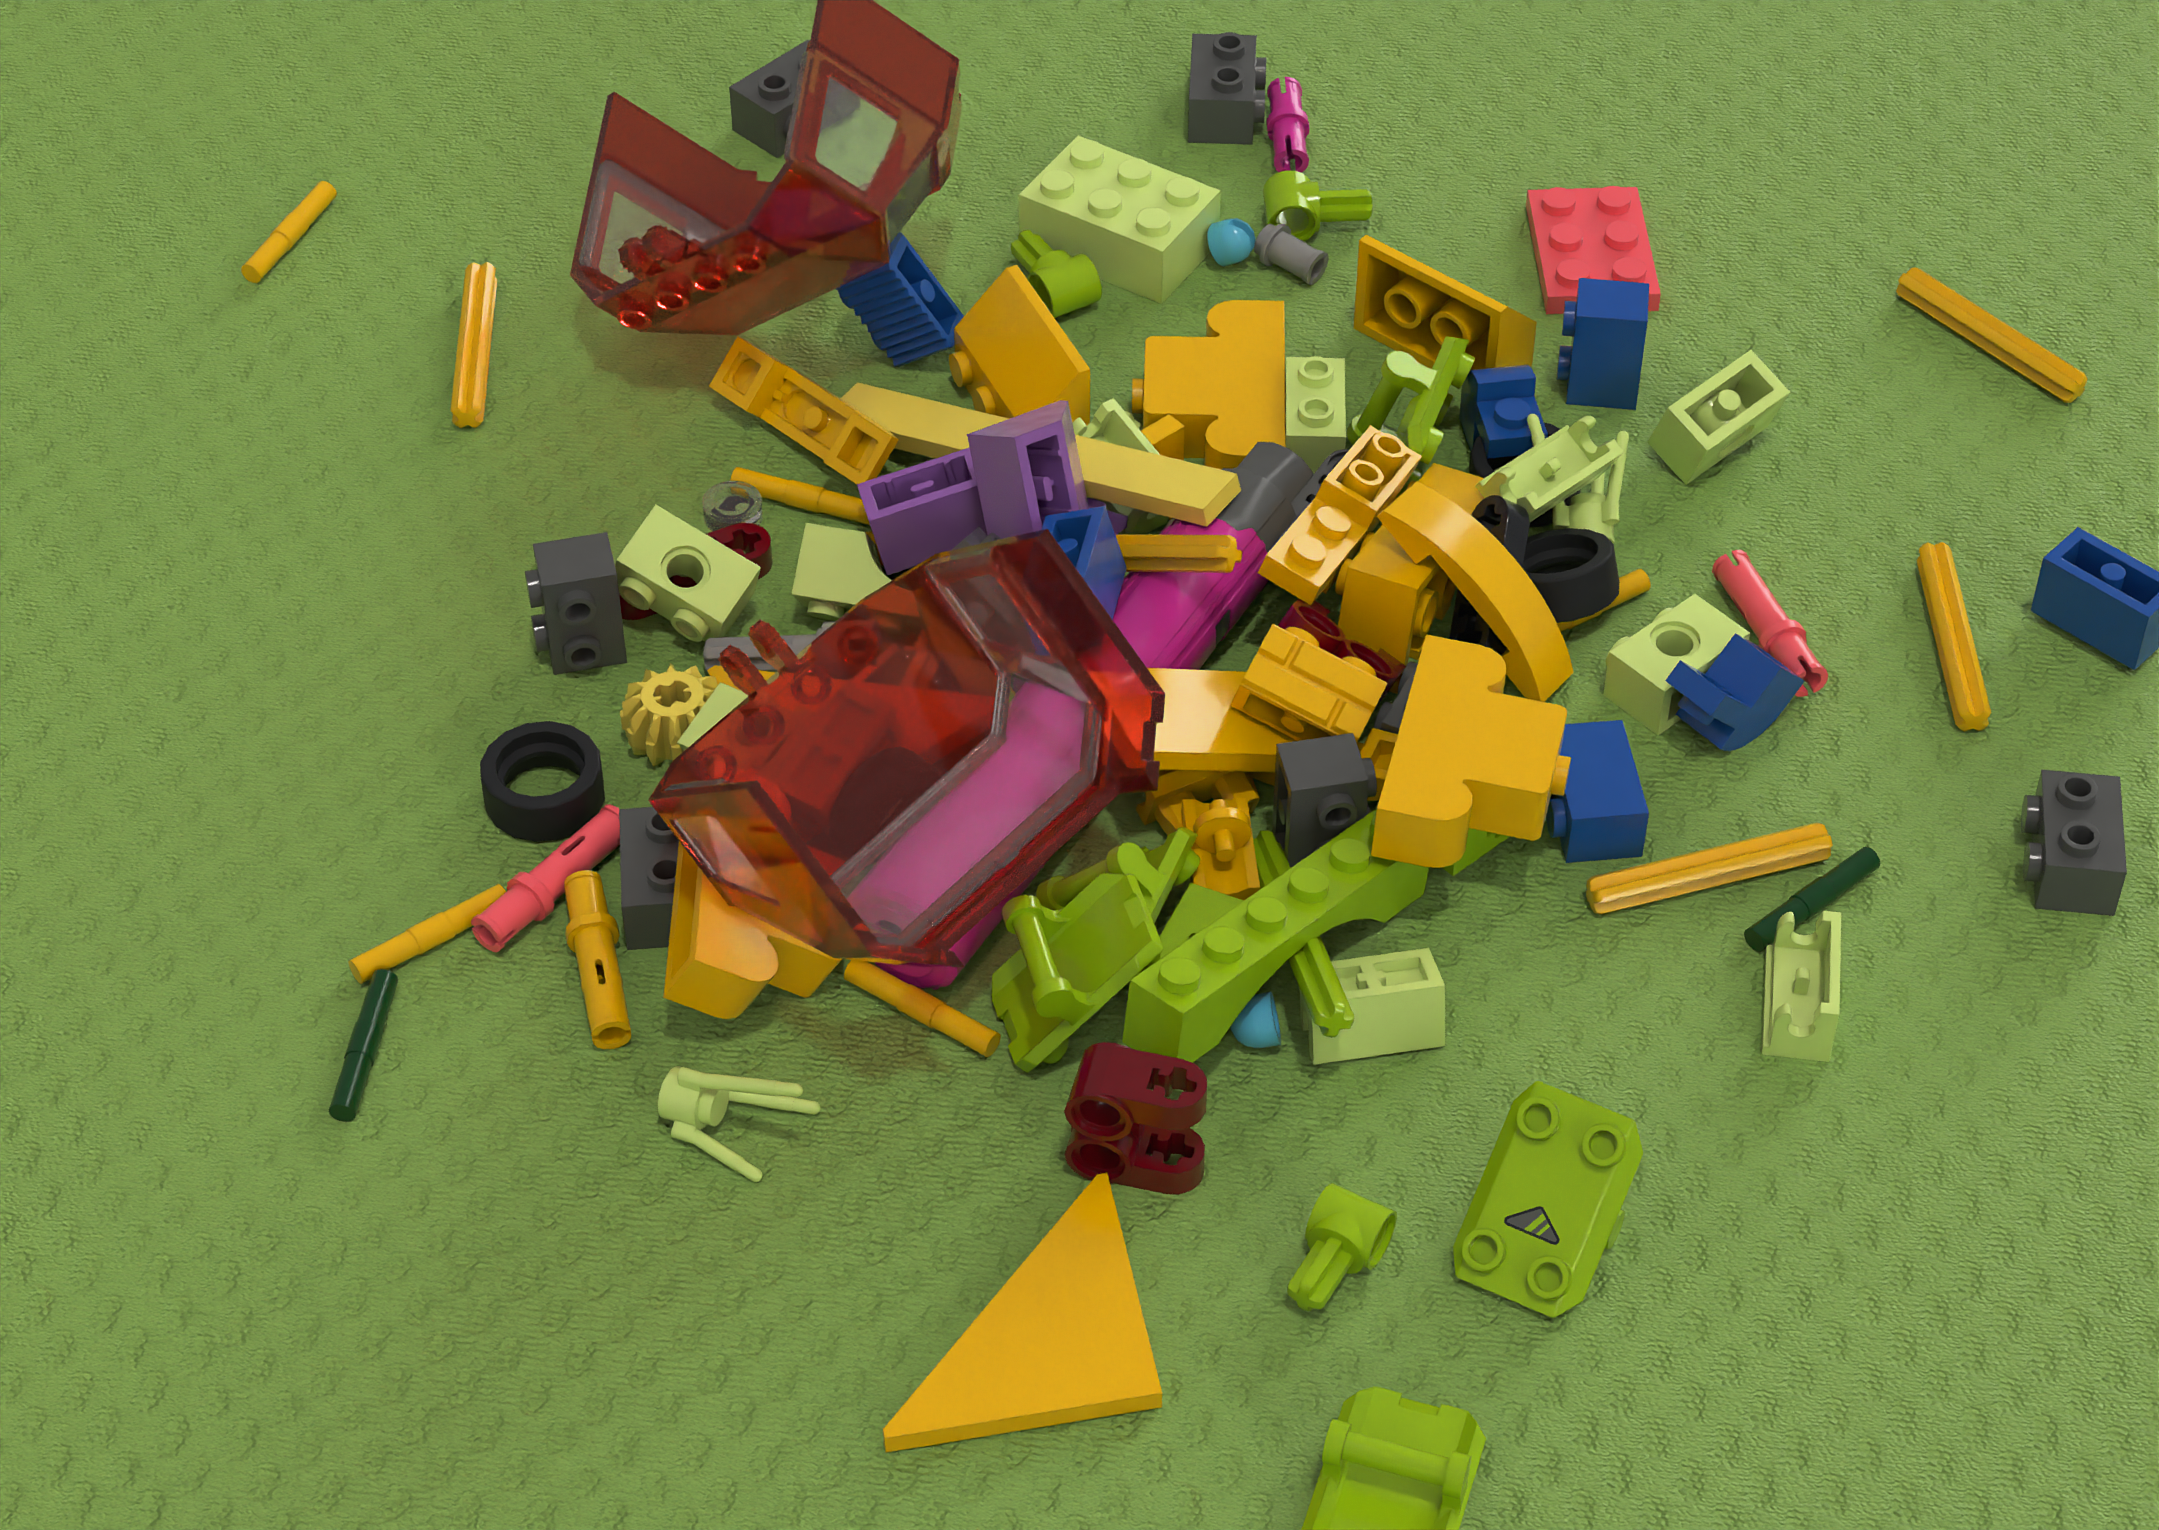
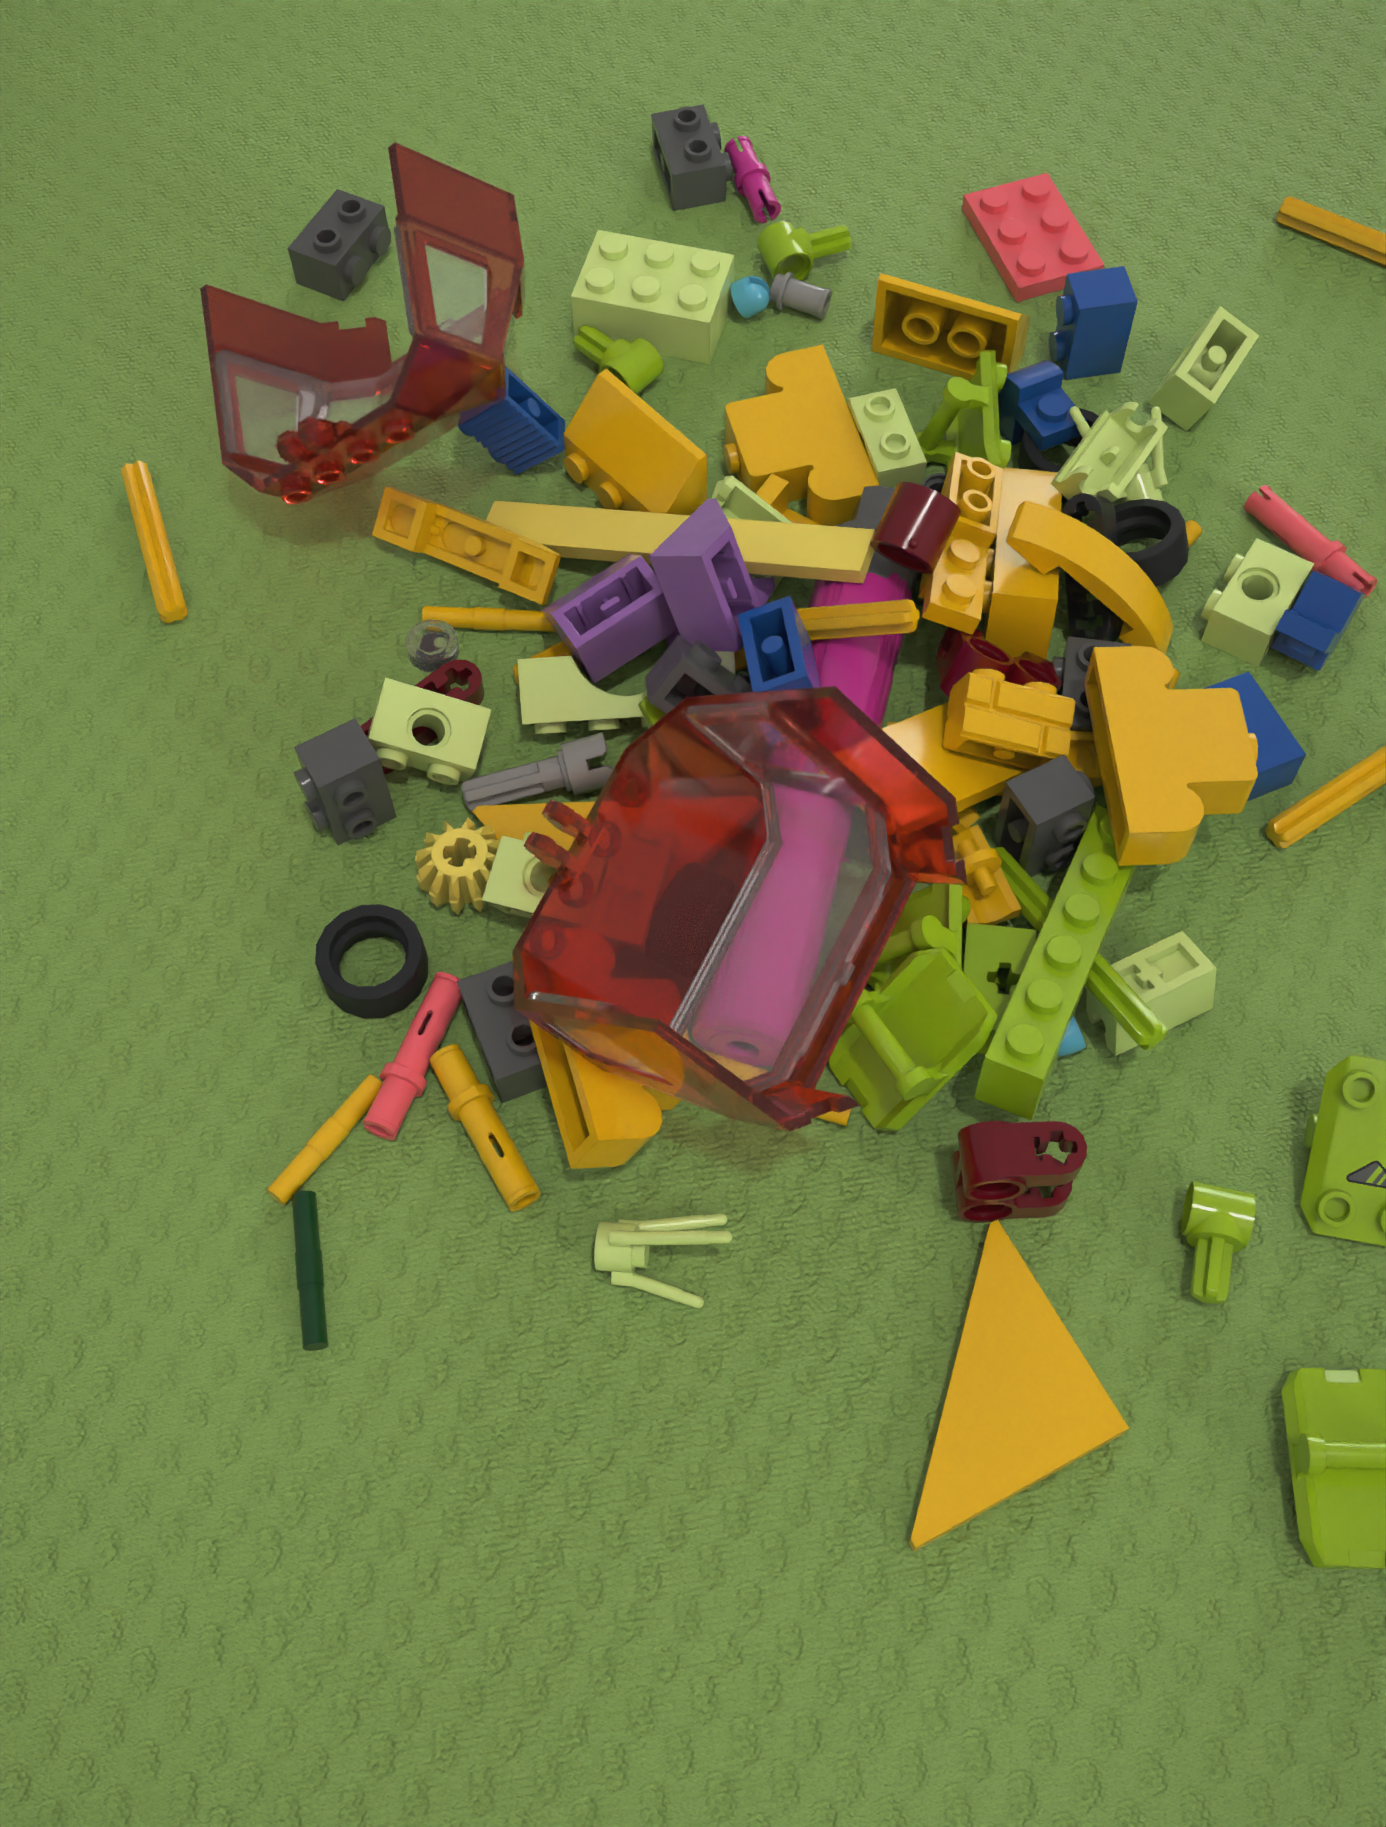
camera: 15 degrees left, 15 degrees up
(1278, 478) = (915, 527): none -> dark red piece

